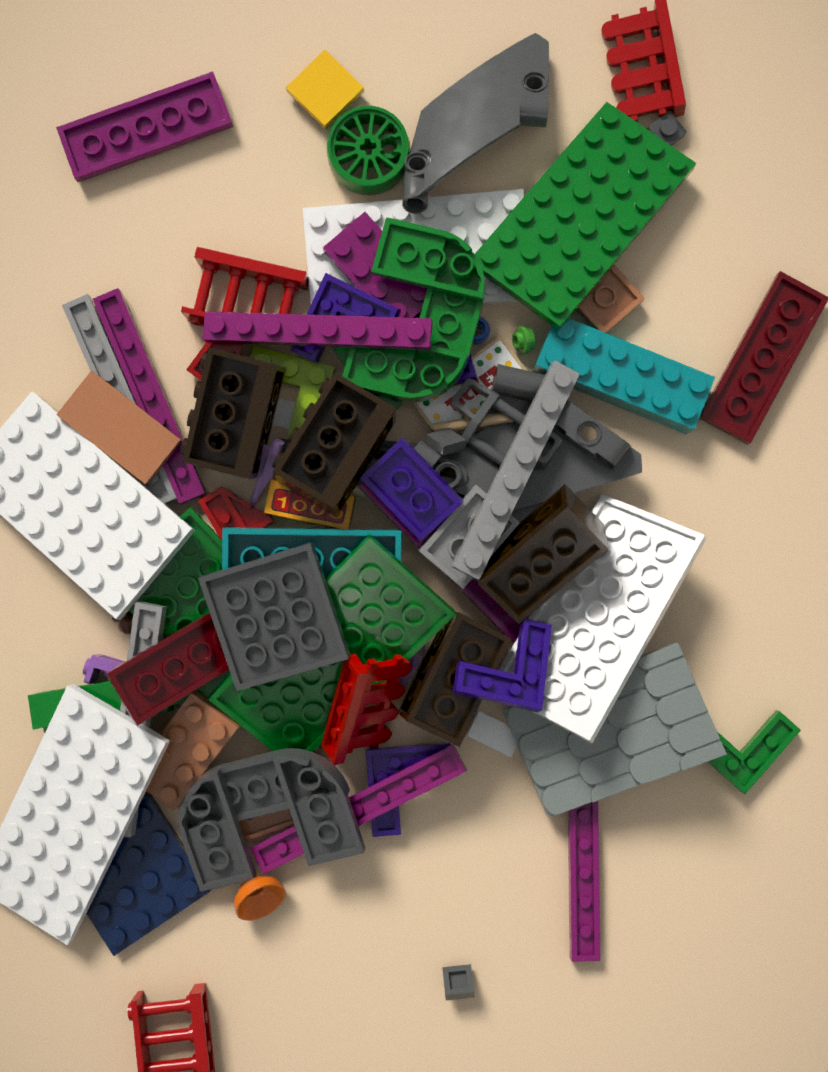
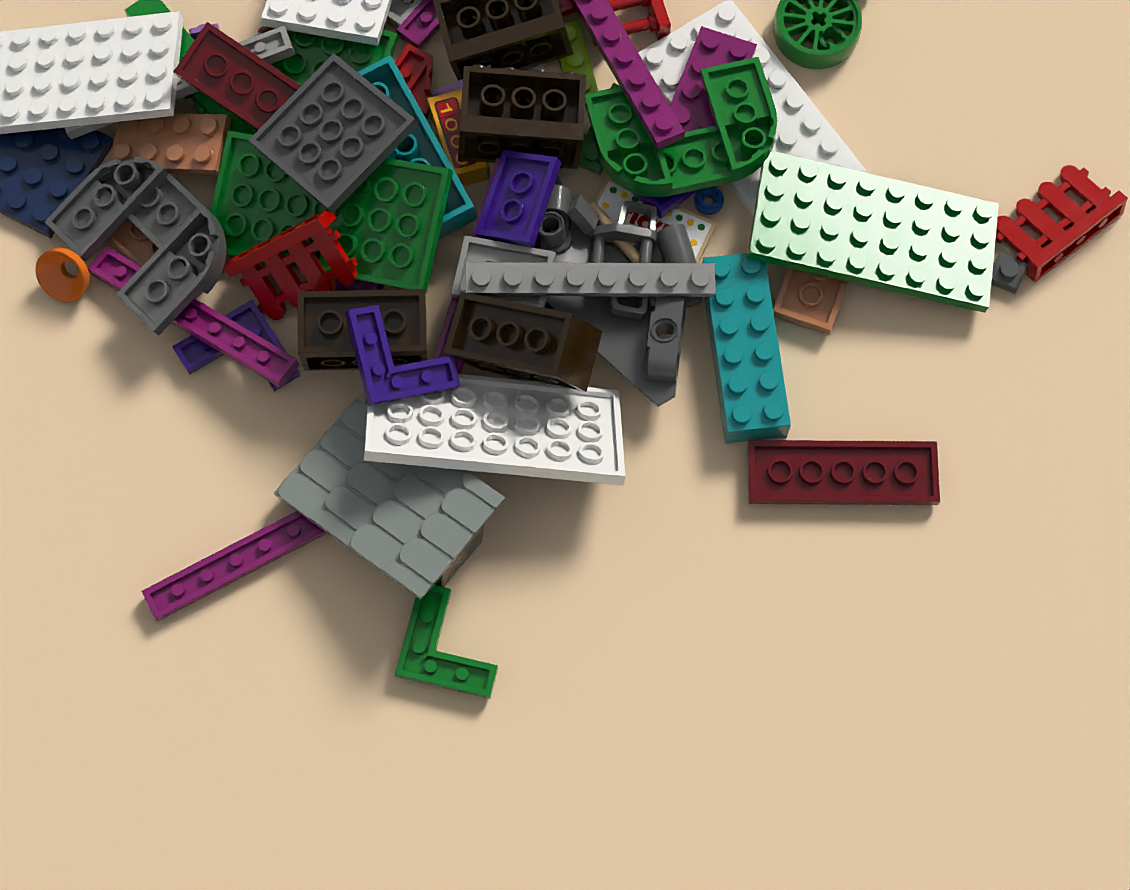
camera: 65 degrees right, 15 degrees down
(340, 297) = (663, 63): dark purple plate -> none
(458, 982) = (68, 496): dark grey plate -> none
(475, 114) = (945, 106): dark grey panel -> none
(492, 733) = (328, 409): white sticker -> none
(523, 339) = (724, 243): bright green plate -> none

